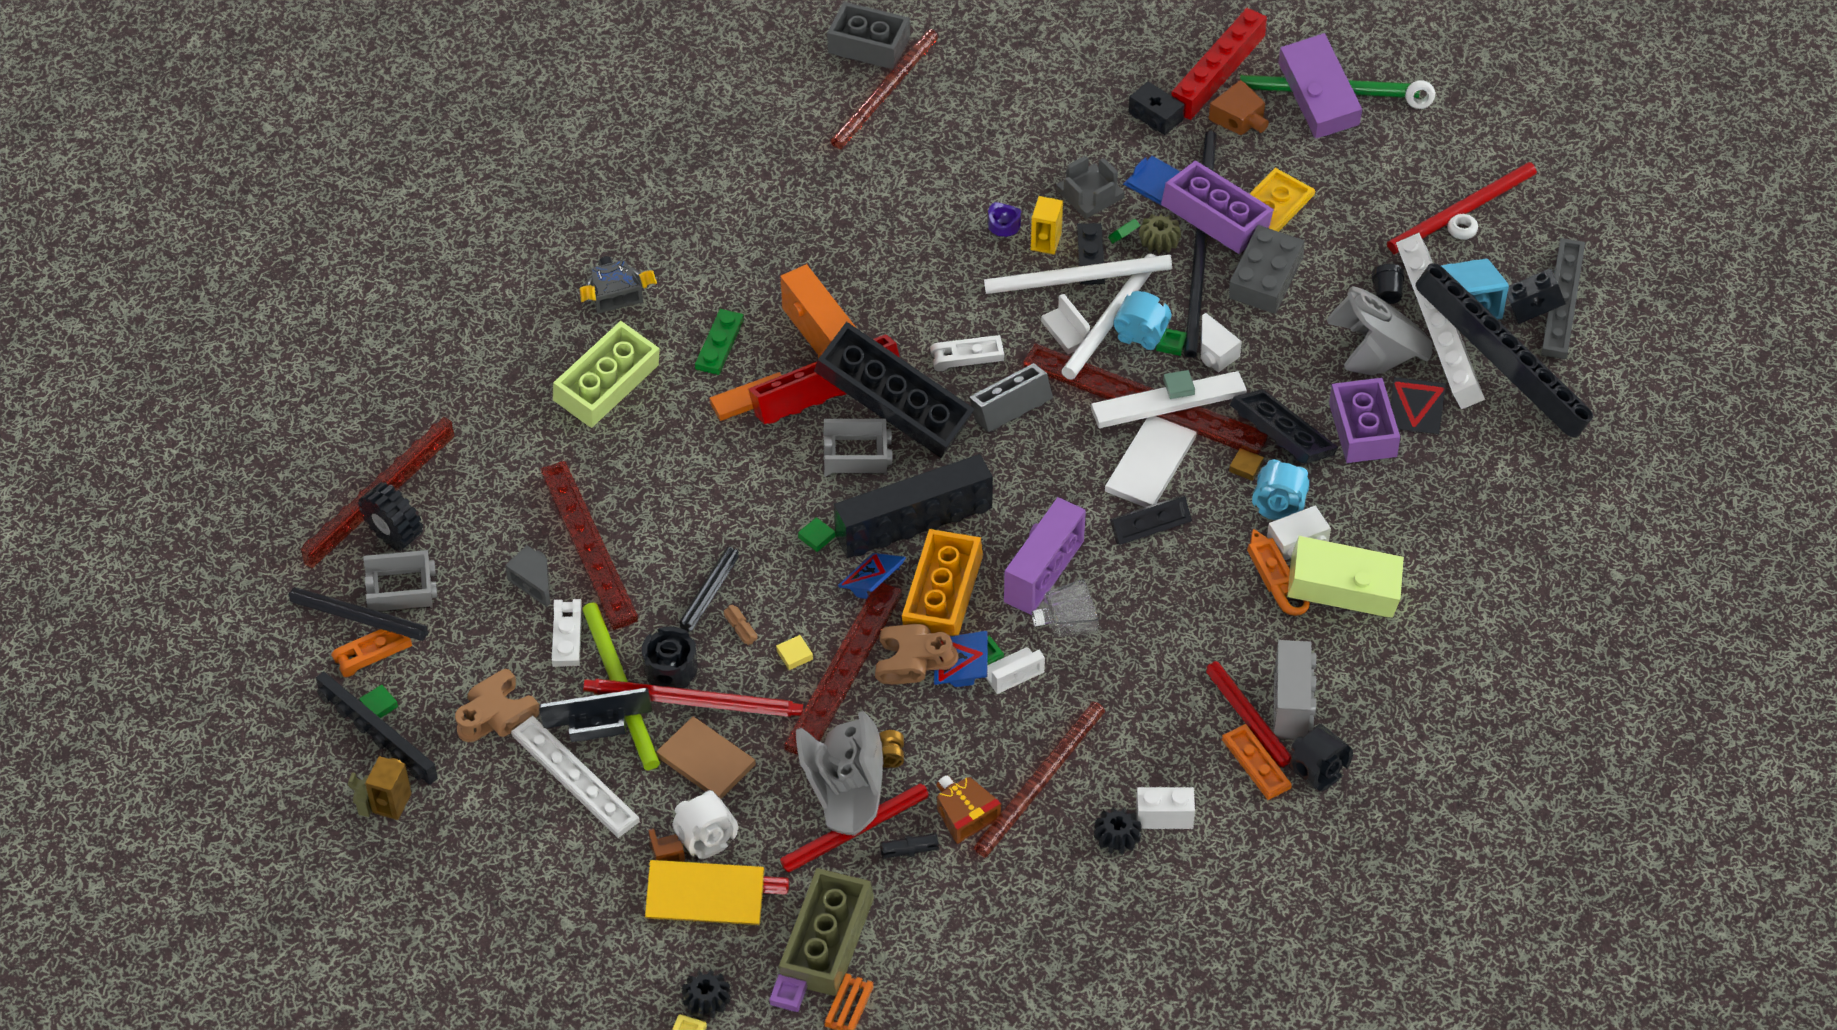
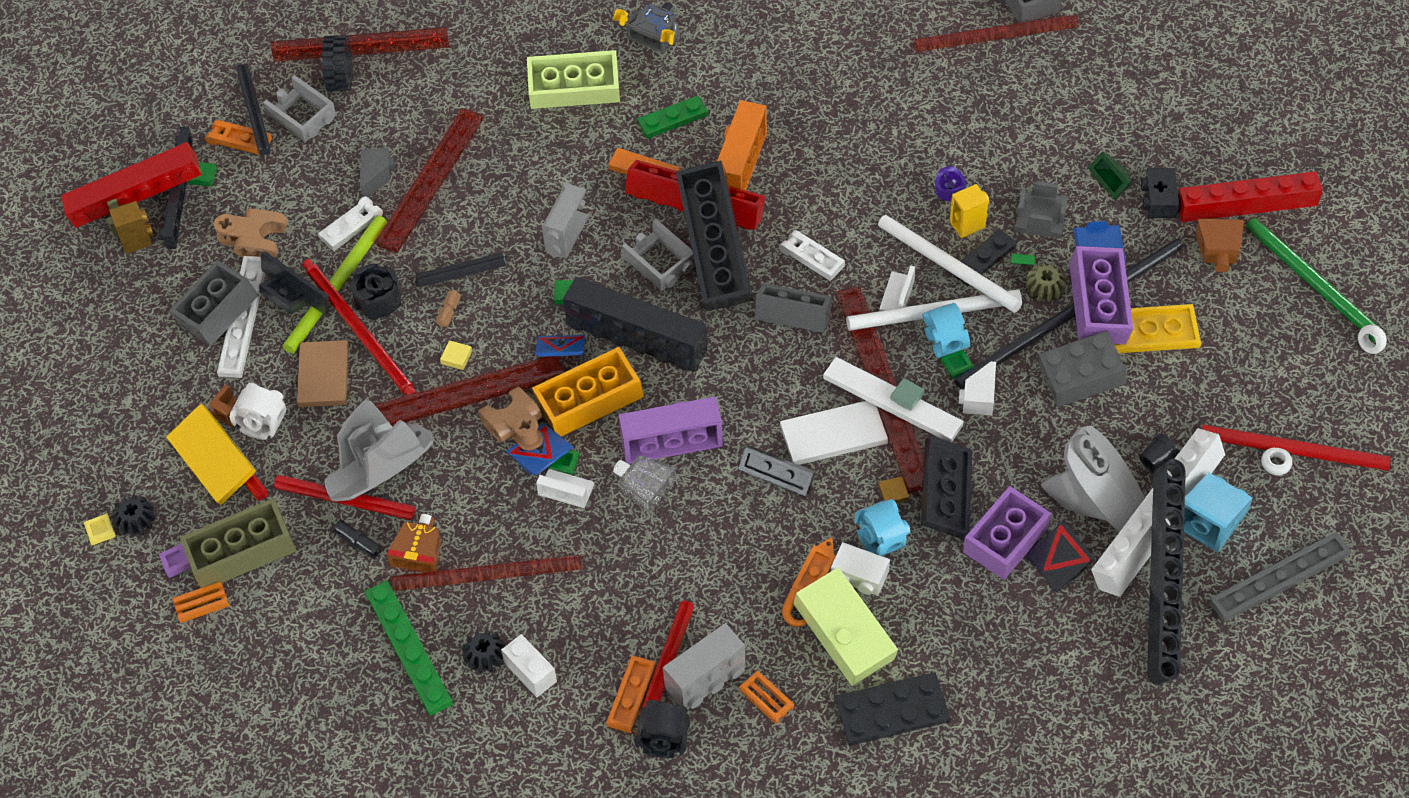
camera: 50 degrees right, 5 degrees up
(341, 755) = (131, 184): none -> red brick
(549, 780) = (214, 302): none -> dark grey brick
(752, 478) = (564, 222): none -> light grey window
(892, 746) = (425, 467): pearl gold wheel -> none
(1054, 883) = (408, 648): none -> green plate
(1103, 125) = (1110, 174): none -> dark green slope
(1320, 86) = (1296, 270): medium lavender brick -> none
(1349, 680) = (781, 711): none -> orange tile
(1440, 606) = (892, 709): none -> black plate
(1535, 296) = (1251, 555): black brick -> none

